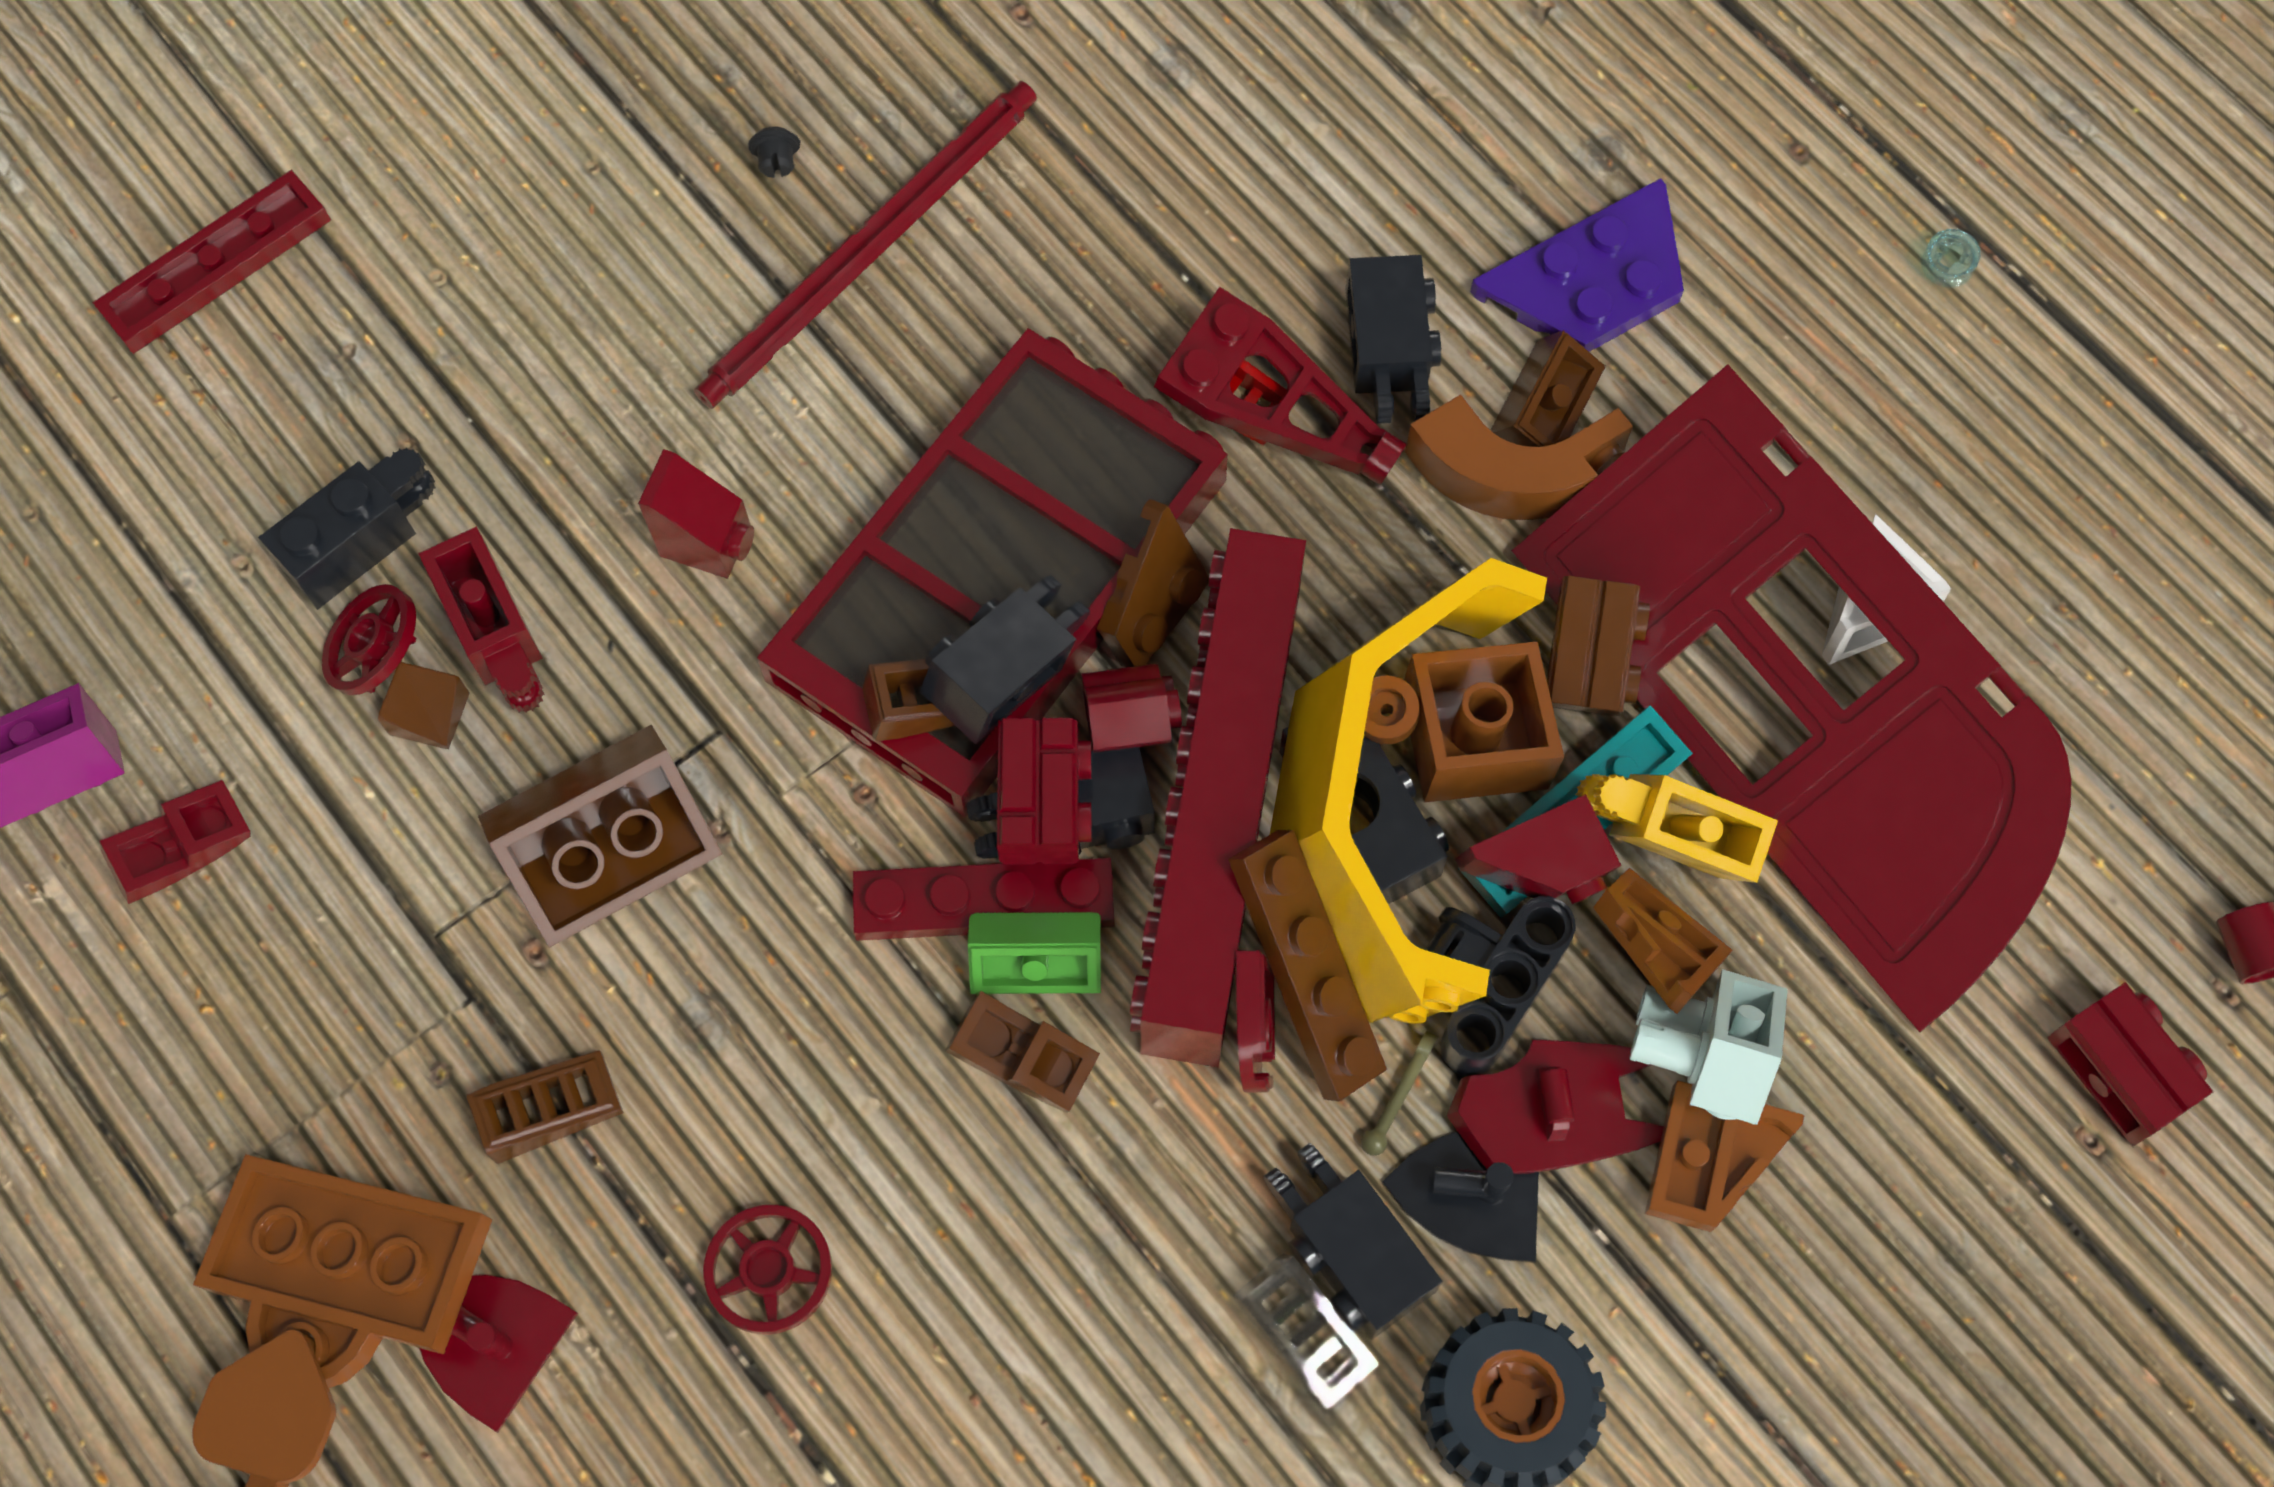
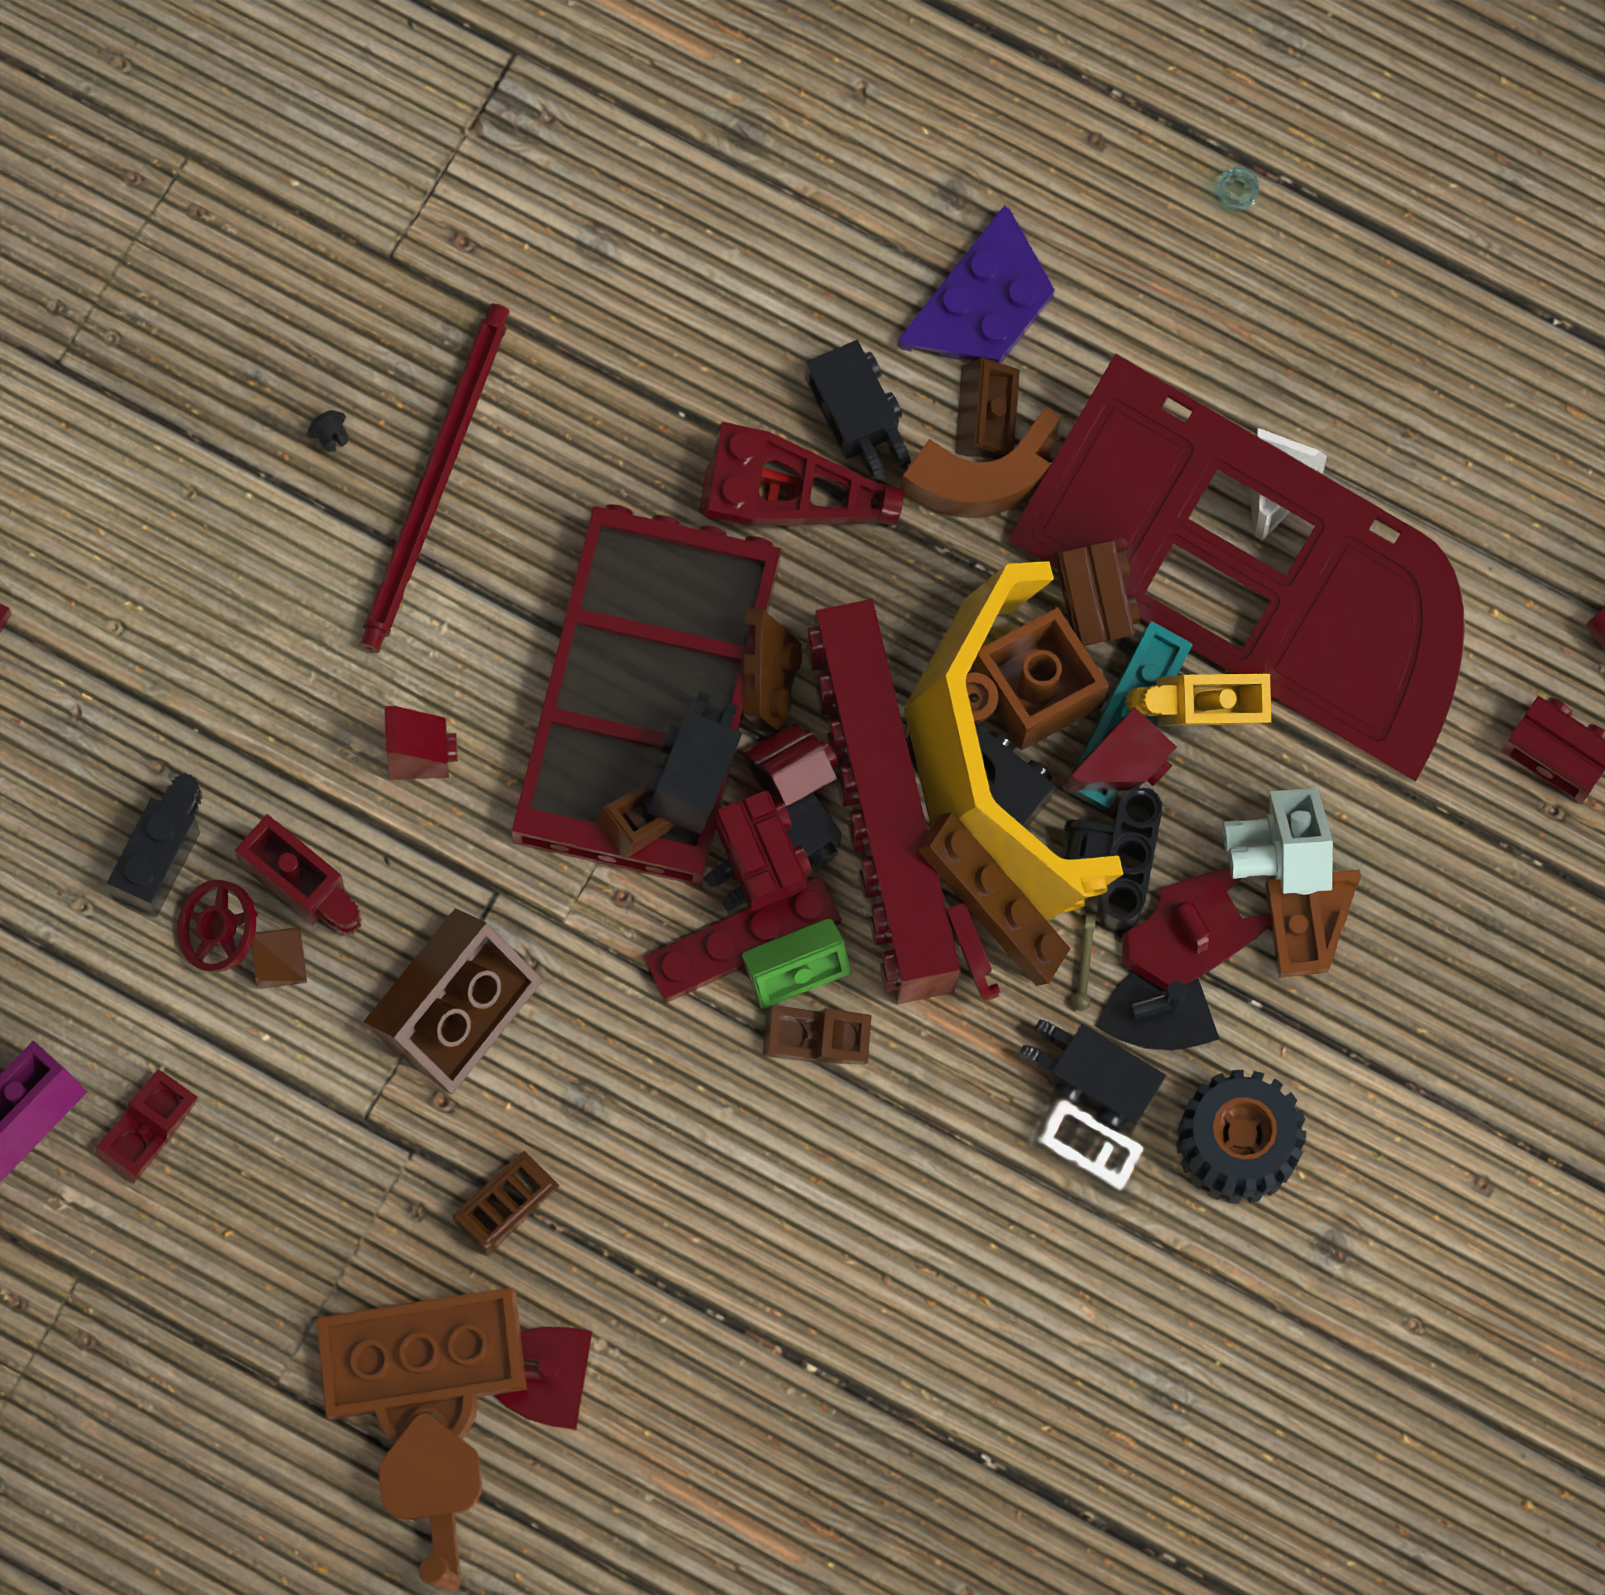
camera: 30 degrees left, 5 degrees up
(767, 1269) = (709, 1250): dark red wheel -> none
(1661, 938) = (1220, 785): dark orange wing -> none

